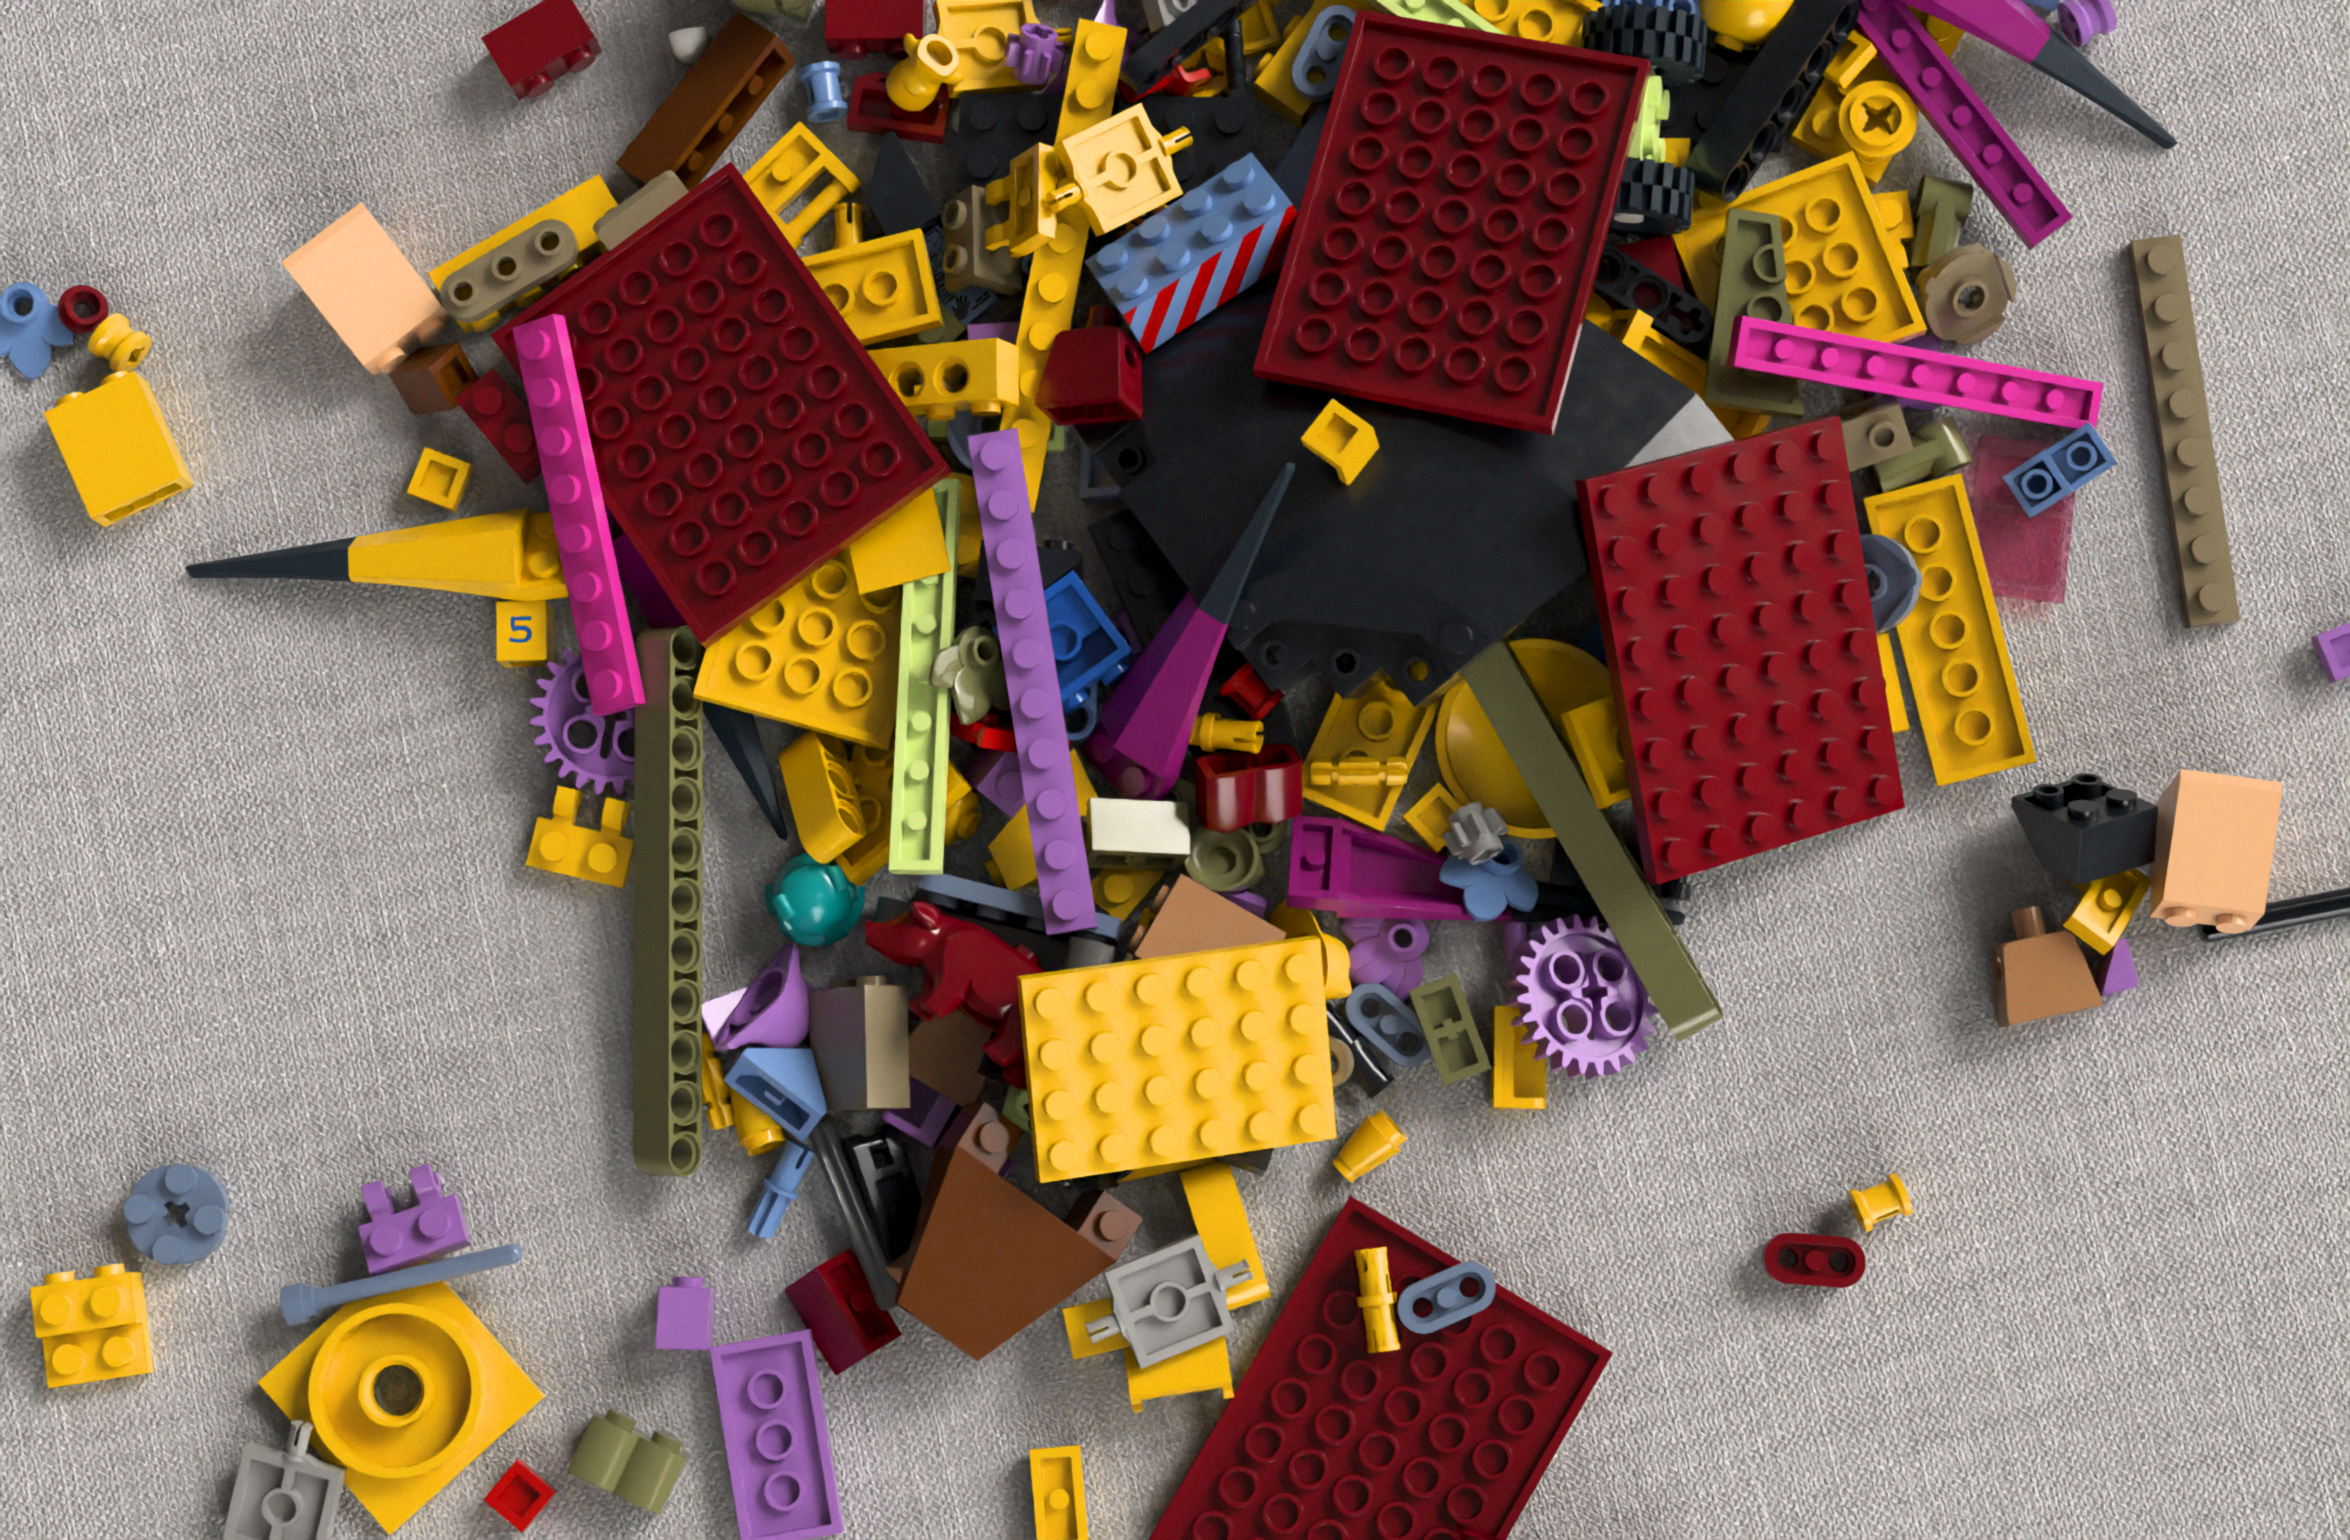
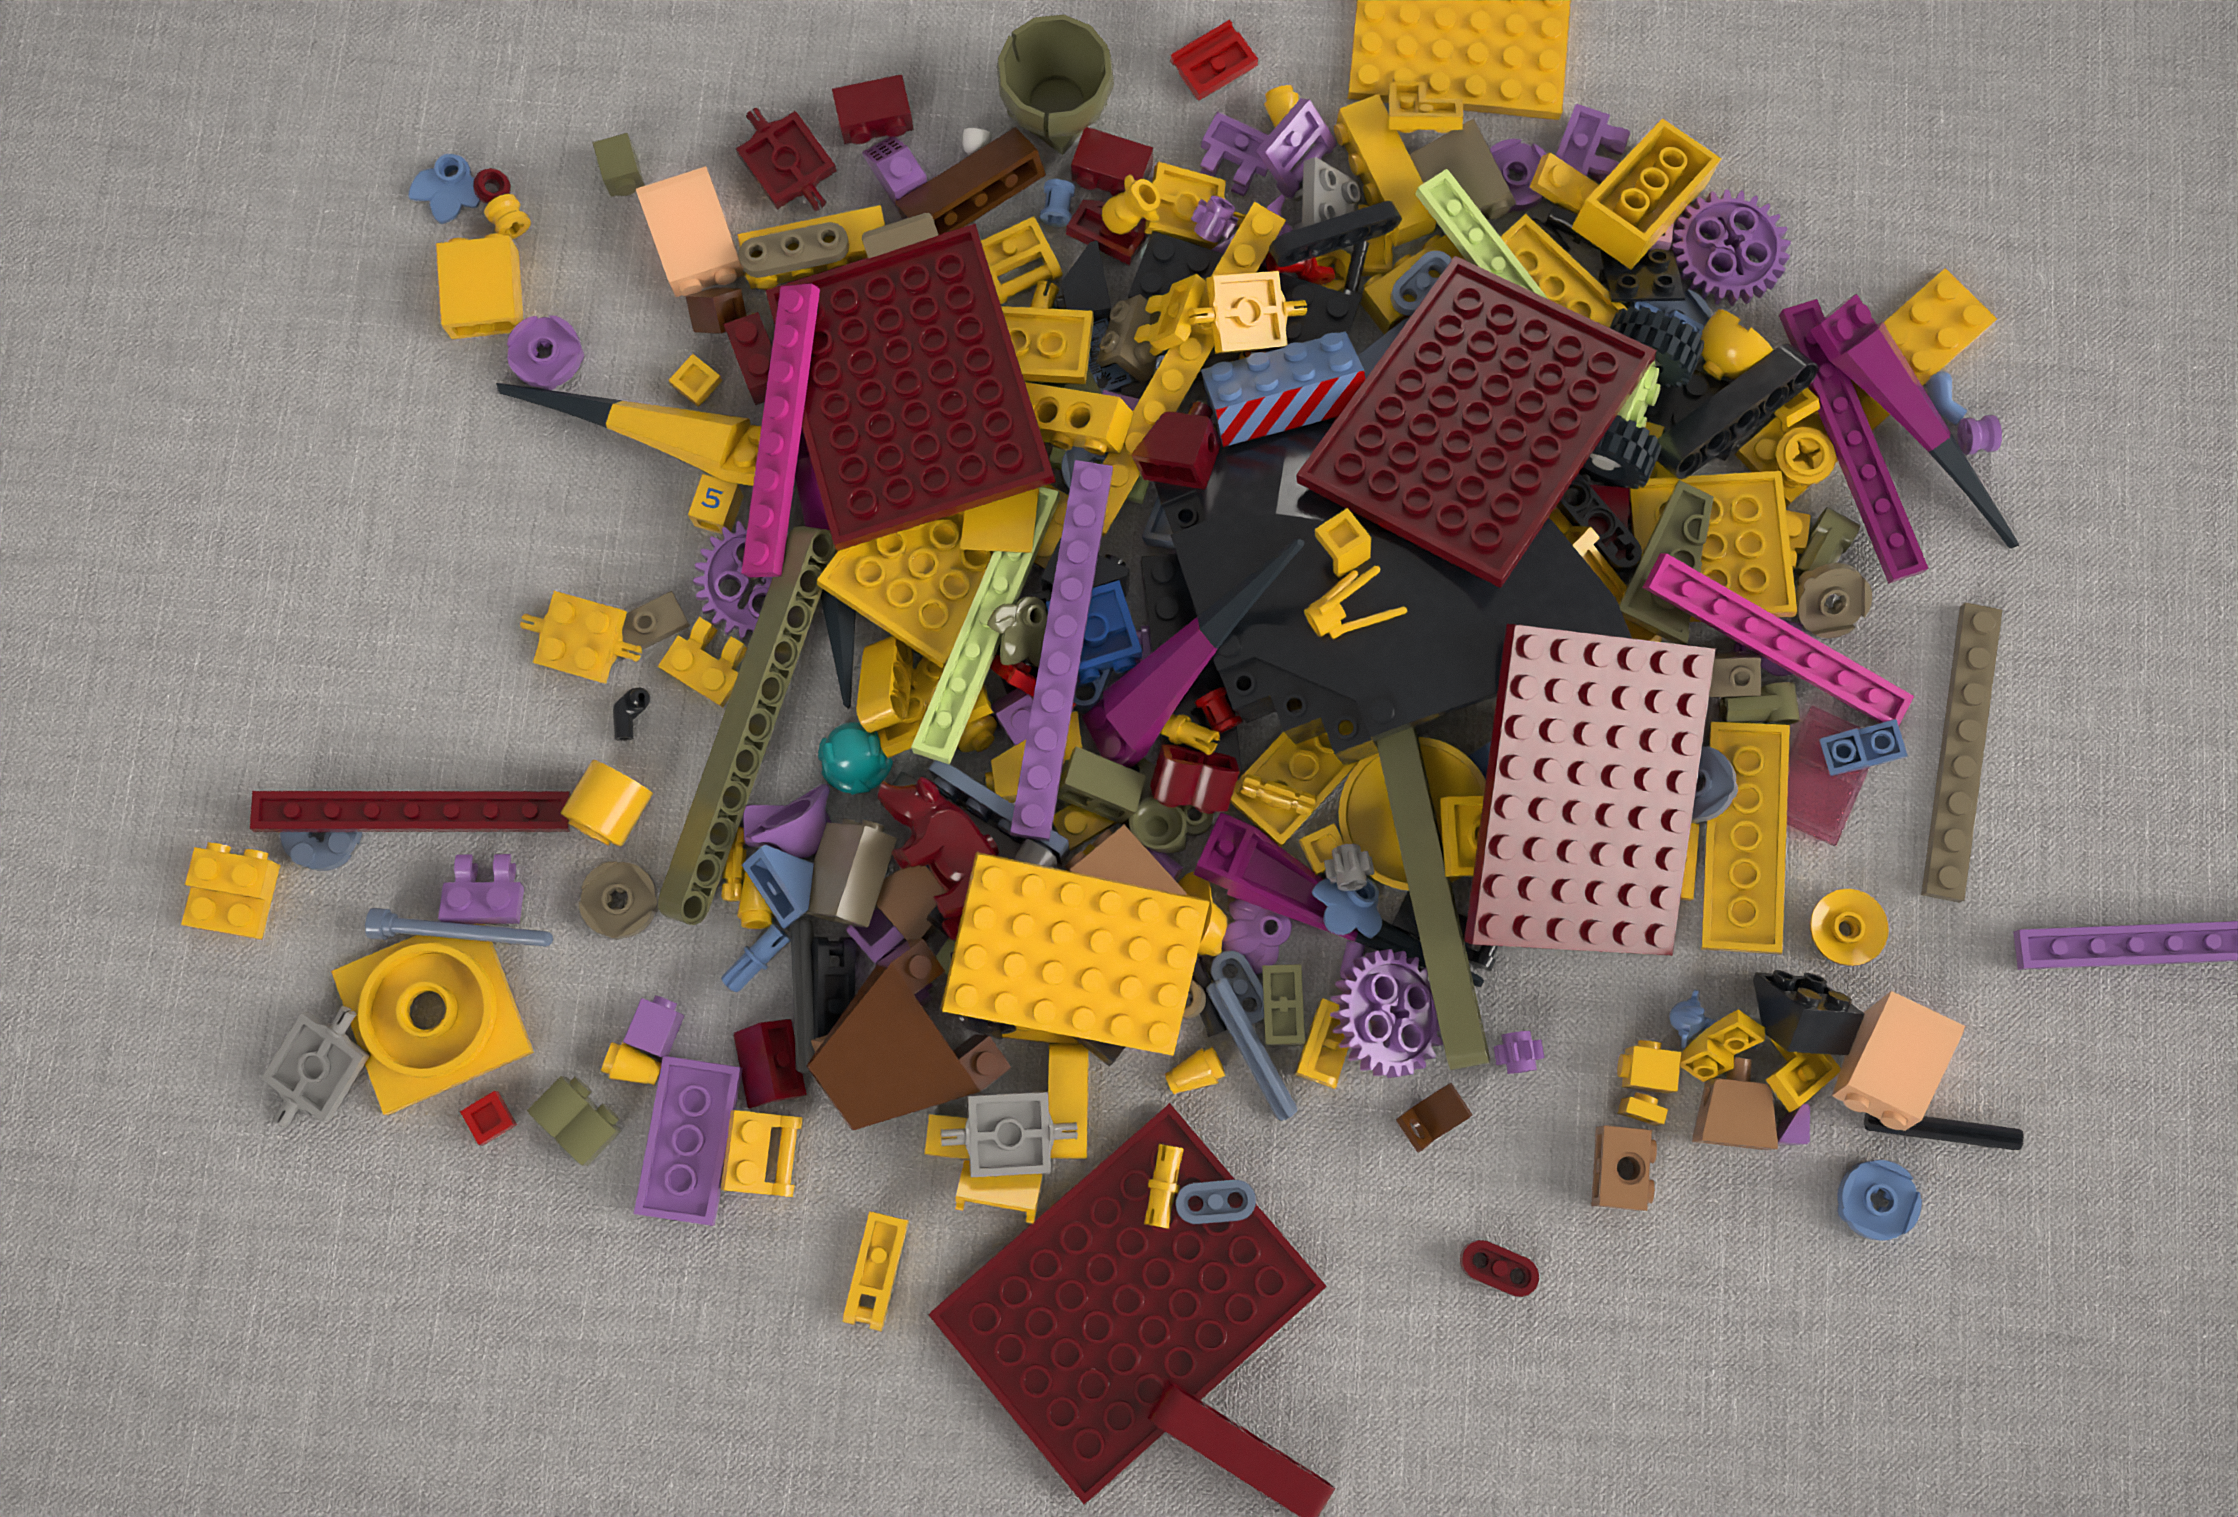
camera: 15 degrees right, 5 degrees down
(222, 479) = (549, 371): none -> medium lavender plate
(239, 228) = (618, 165): none -> olive brick
(284, 1152) = (409, 811): none -> dark red plate
(415, 860) = (580, 637): none -> yellow plate
(452, 148) = (786, 159): none -> dark red plate
(492, 816) = (654, 622): none -> dark tan plate
(506, 932) = (626, 710): none -> black arm
(526, 1062) = (606, 804): none -> yellow piece
(554, 1178) = (596, 897): none -> dark tan plate
(598, 114) = (895, 168): none -> medium lavender slope
(673, 1371) = (630, 1065): none -> yellow cone
(856, 1427) = (748, 1153): none -> yellow plate
(1349, 538) = (1327, 612): none -> yellow plant
(1428, 1096) = (1251, 1049): none -> sand blue axle
(1676, 1104) = (1434, 1116): none -> reddish brown bracket
(1755, 990) = (1519, 1052): none -> medium lavender gear
(1880, 1202) = (1563, 1241): yellow bush -> none
(1915, 1119) = (1608, 1187): none -> medium nougat brick
(1919, 955) = (1649, 1067): none -> yellow brick
(1926, 1008) = (1643, 1108): none -> yellow plate
(1948, 879) = (1689, 1019): none -> medium blue piece
(1991, 905) = (1715, 1047): none -> yellow slope
(2133, 697) = (1866, 921): none -> yellow dish
(2264, 1003) = (1899, 1191): none -> medium blue plate

